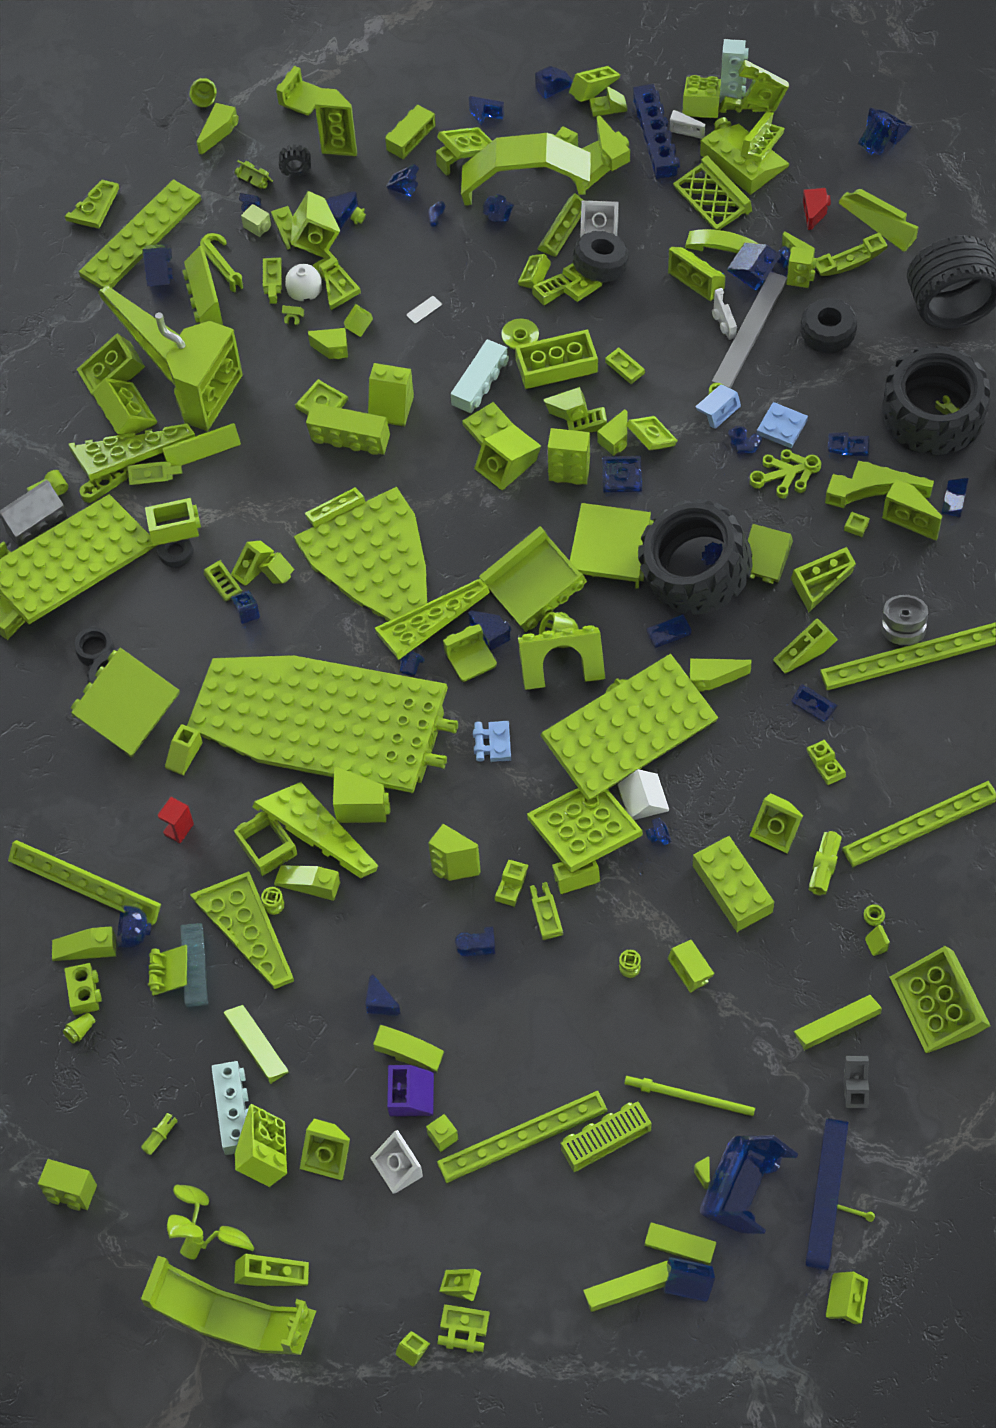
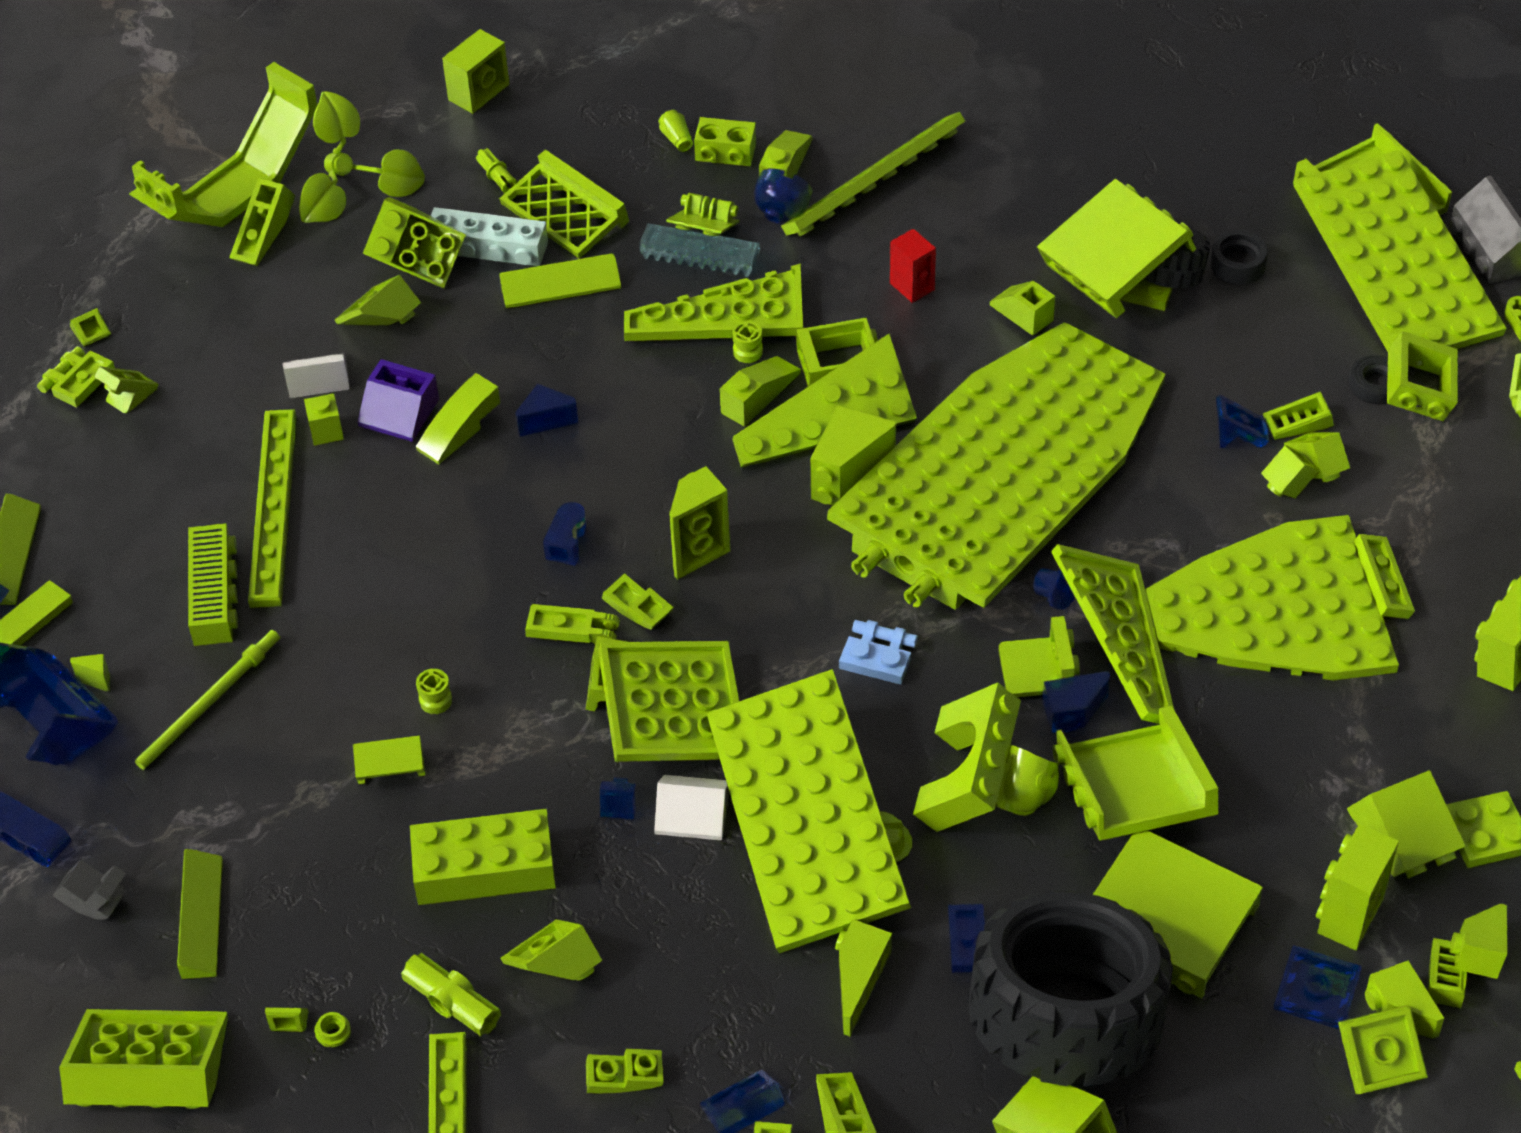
camera: 110 degrees right, 10 degrees down
(162, 1067) = (583, 192): none -> lime fence

